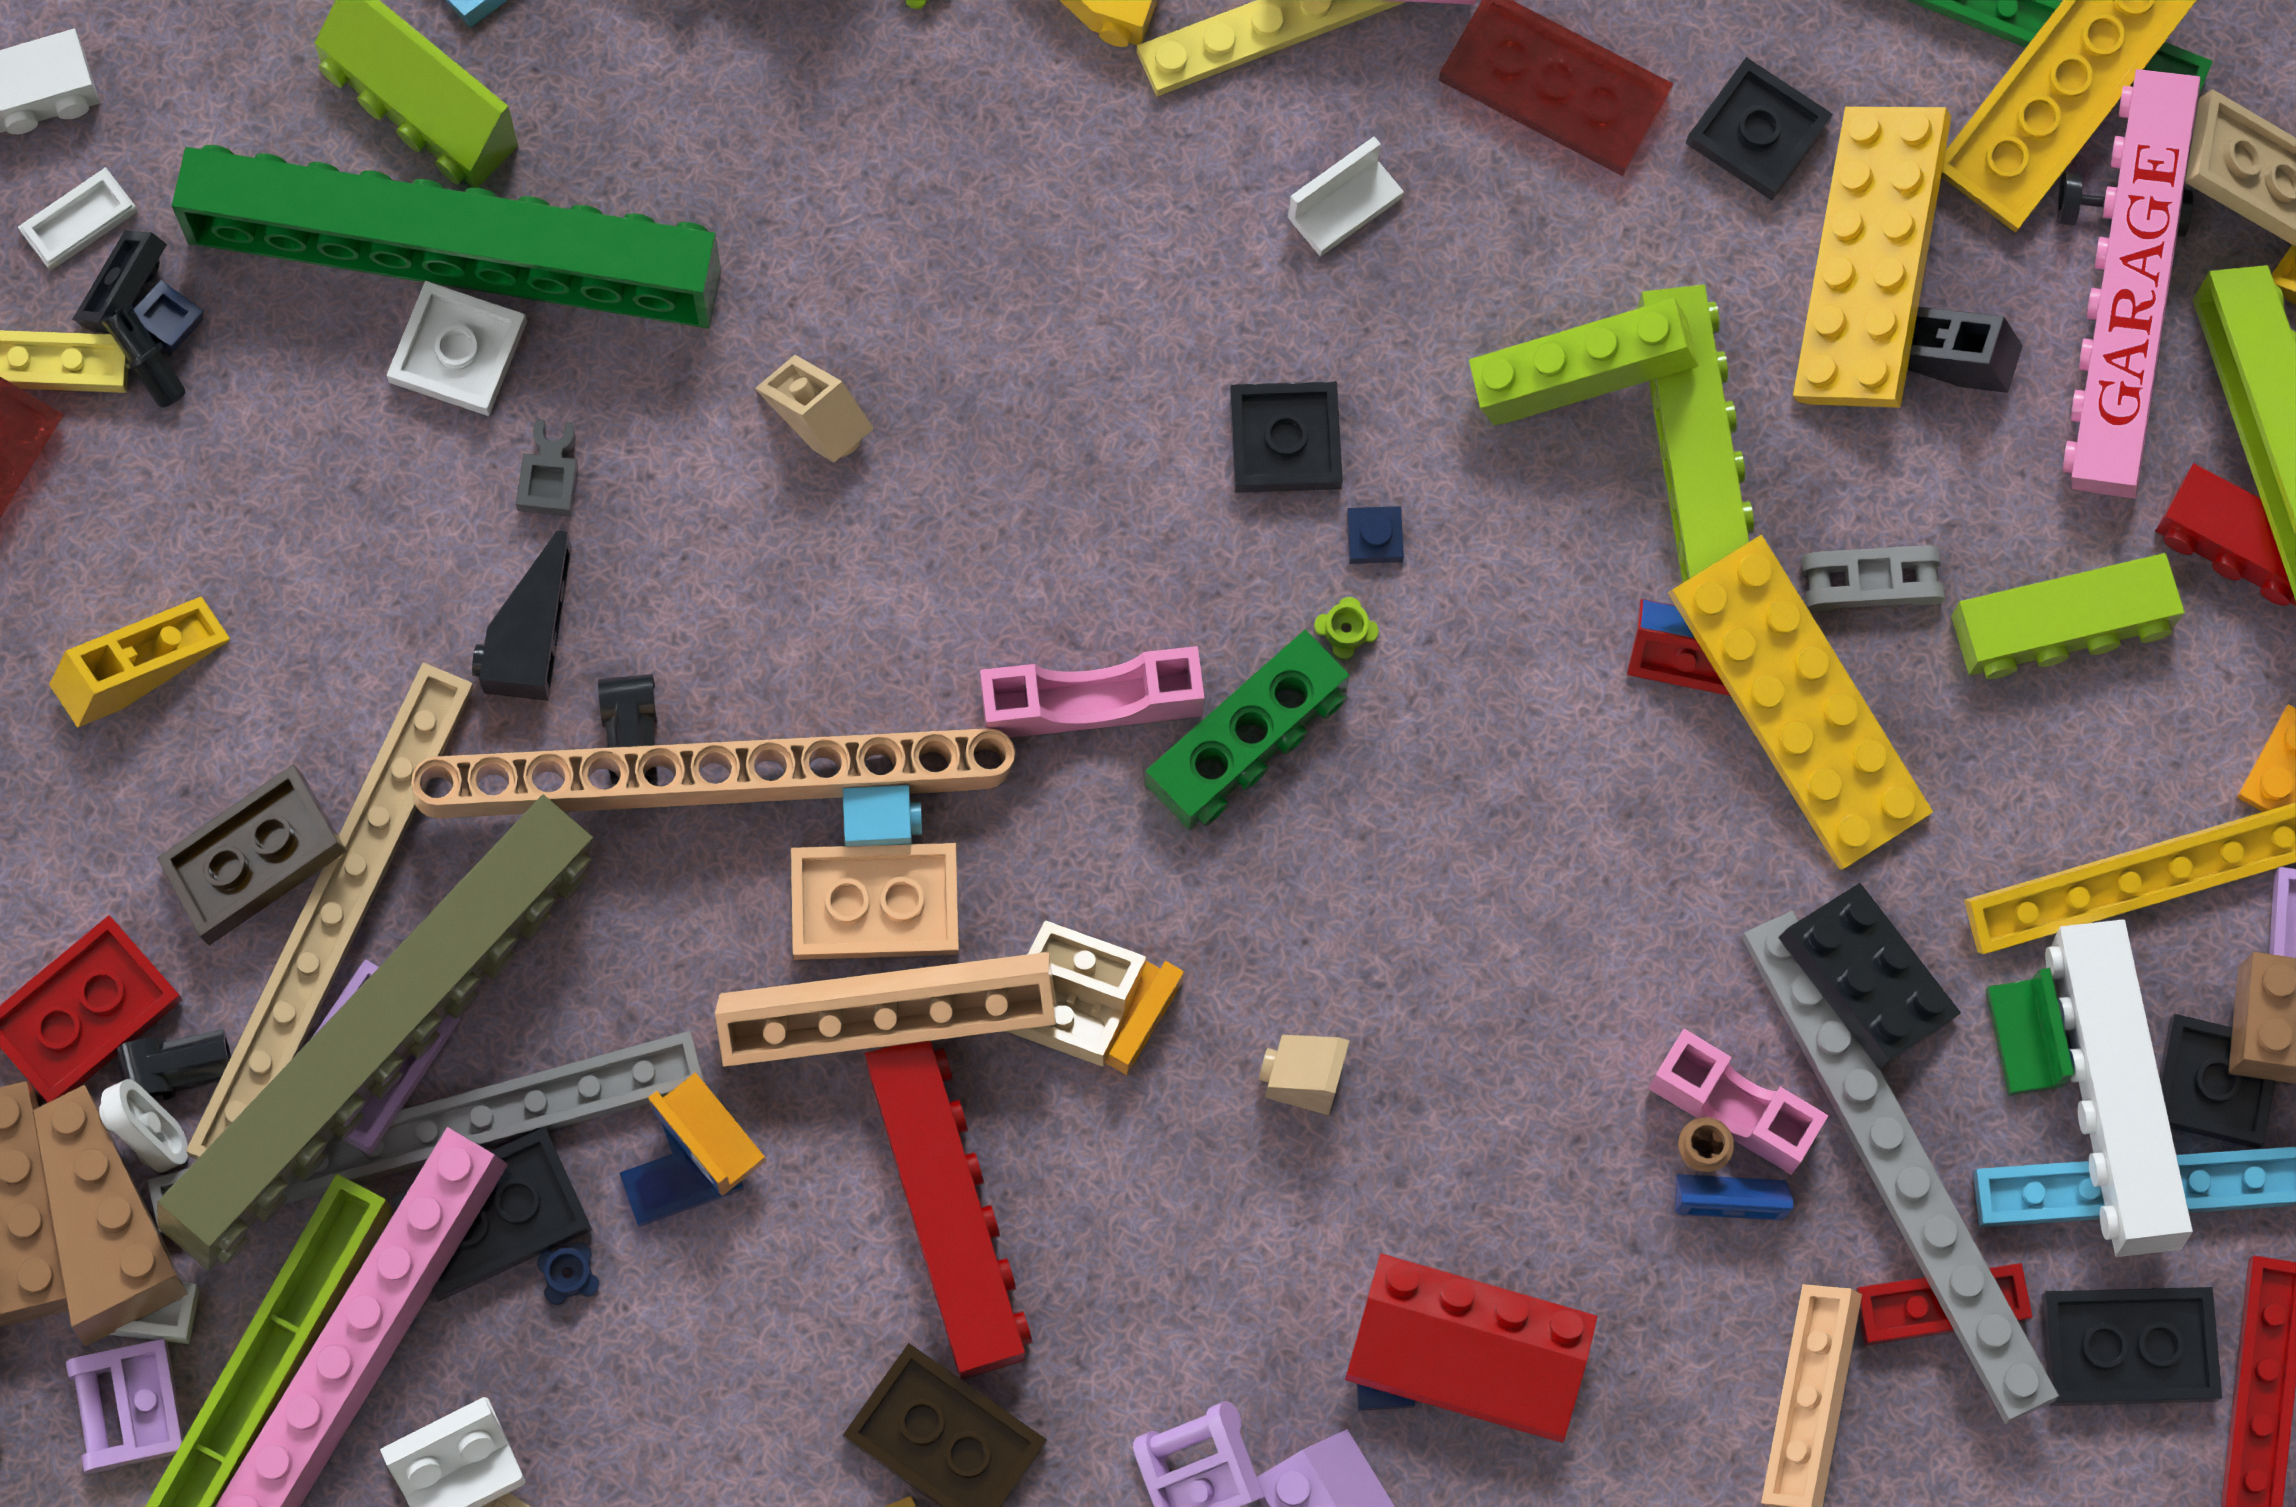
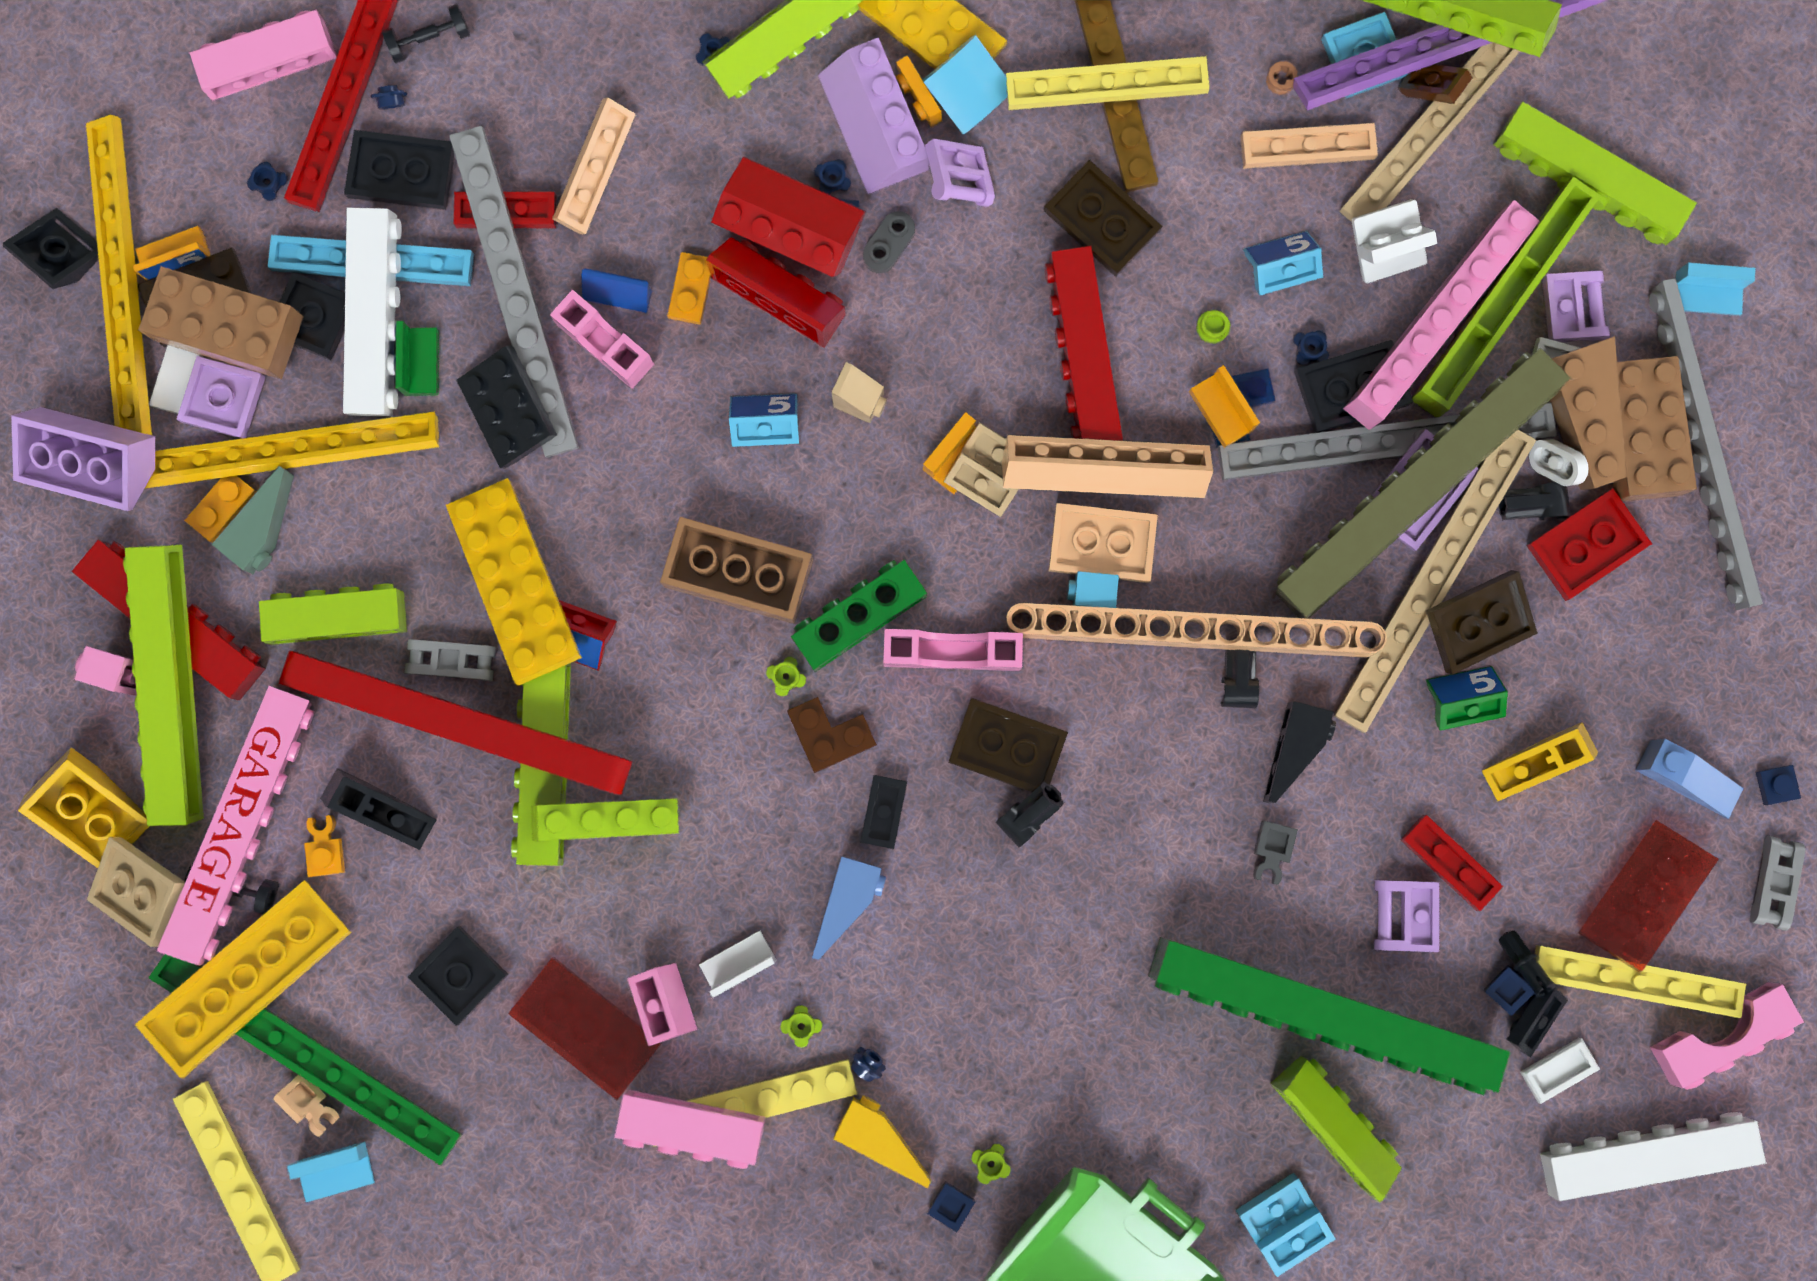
camera: 170 degrees left, 10 degrees up
(262, 742) = (1468, 697): none -> panel
(269, 491) = (1451, 863): none -> red plate
(314, 405) = (1418, 916): none -> lavender plate
(456, 348) = (1324, 943): white plate -> none
(629, 1412) = (1285, 262): none -> medium azure panel
(736, 1284) = (1213, 326): none -> lime plate
(816, 408) = (1101, 868): tan slope -> none
(937, 464) = (1026, 817): none -> black piece
(982, 567) = (1007, 746): none -> dark brown plate
(1127, 86) = (867, 1064): none -> dark blue plate
(1160, 446) = (883, 812): none -> black plate
(1191, 311) = (850, 896): none -> medium blue slope
(1235, 114) = (790, 1026): none -> lime plate
(1268, 536) = (828, 744): none -> reddish brown plate
(1285, 437) = (803, 806): black plate -> none
(1298, 1347) = (889, 241): none -> dark grey plate
(1375, 535) = (757, 734): dark blue plate -> none
(1413, 1429) = (834, 168): none -> dark blue plate
(1447, 123) = (662, 1004): none -> bright pink brick
(1451, 766) = (737, 570): none -> medium nougat brick
(1453, 1023) = (763, 420): none -> medium azure panel
(1467, 1223) = (776, 291): none -> red slope
(1611, 1222) = (690, 289): none -> light orange plate
(1711, 1135) = (626, 306): medium nougat cone -> none
(1842, 472) = (456, 722): none -> red beam
(1872, 256) = (402, 874): yellow plate -> none
(2001, 274) = (324, 854): none -> light orange plate
(2177, 1466) = (389, 97): none -> dark blue plate
(2218, 729) = (256, 528): none -> sand green slope

